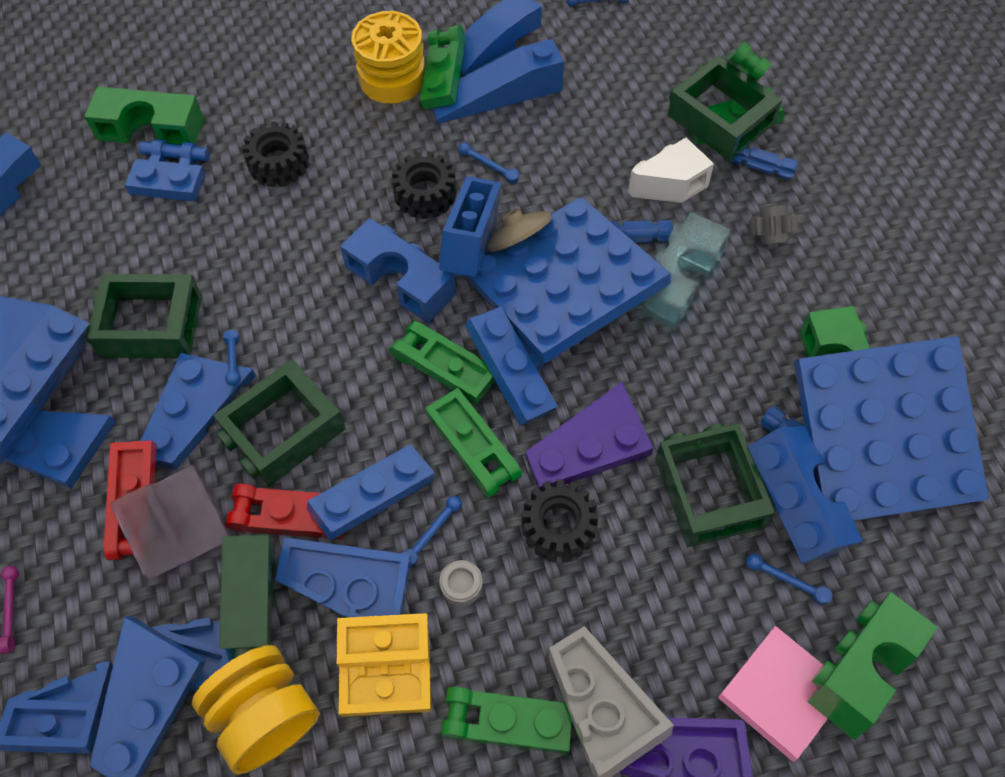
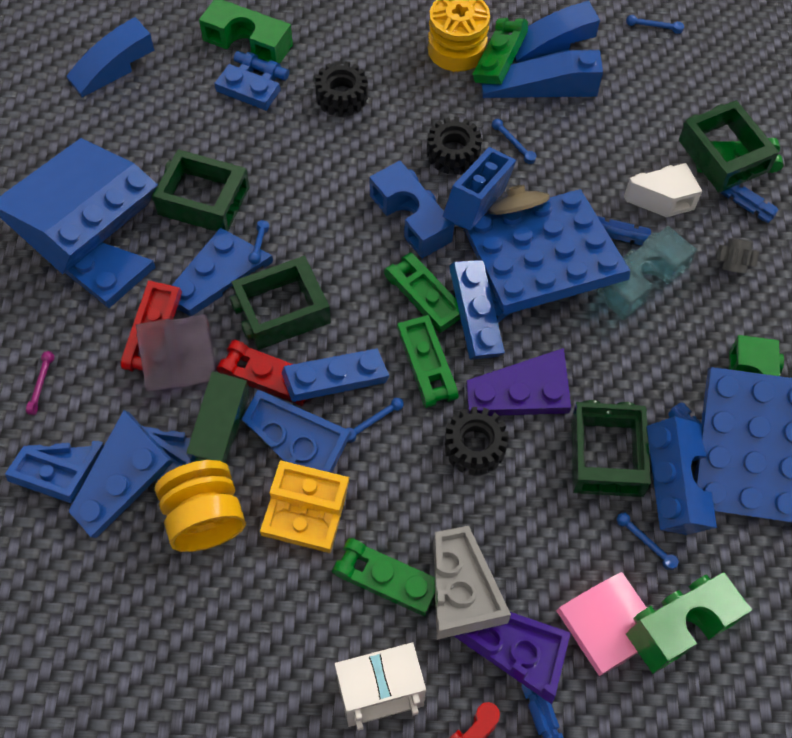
camera: 15 degrees right, 0 degrees up
(461, 583) = (383, 465): light grey tile -> none
(748, 61) = (760, 112): green plate -> none

